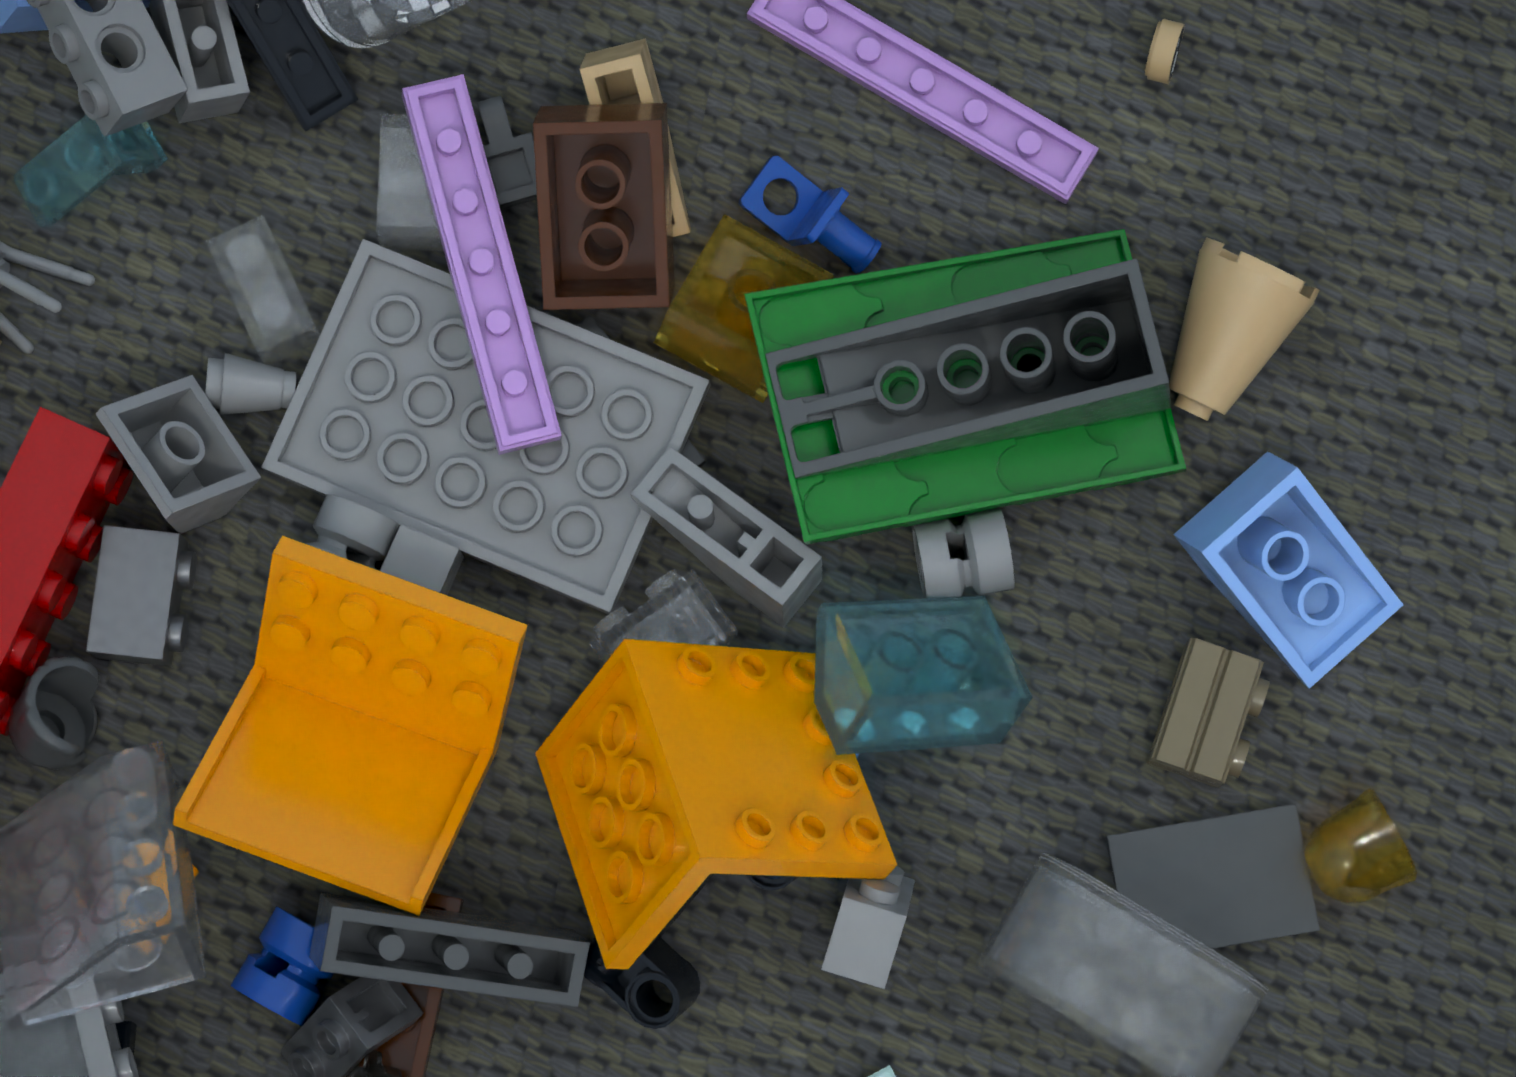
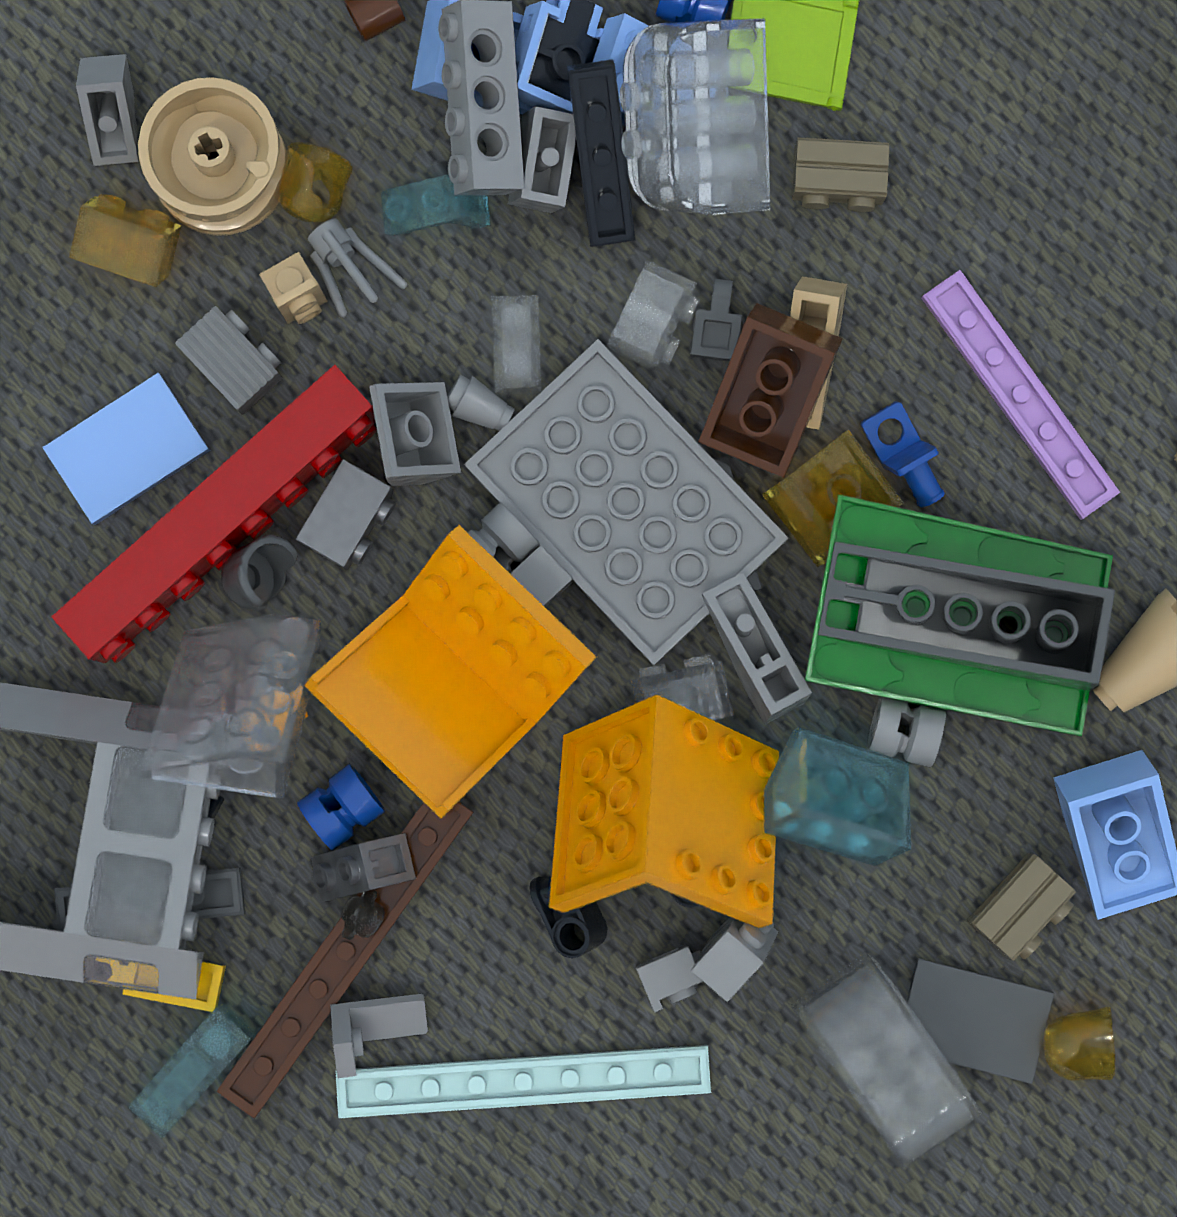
camera: 20 degrees right, 5 degrees up
(449, 950) = (451, 847): dark grey brick -> none
(481, 264) = (670, 392): lavender tile -> none
(802, 996) = (669, 976): none -> light grey brick

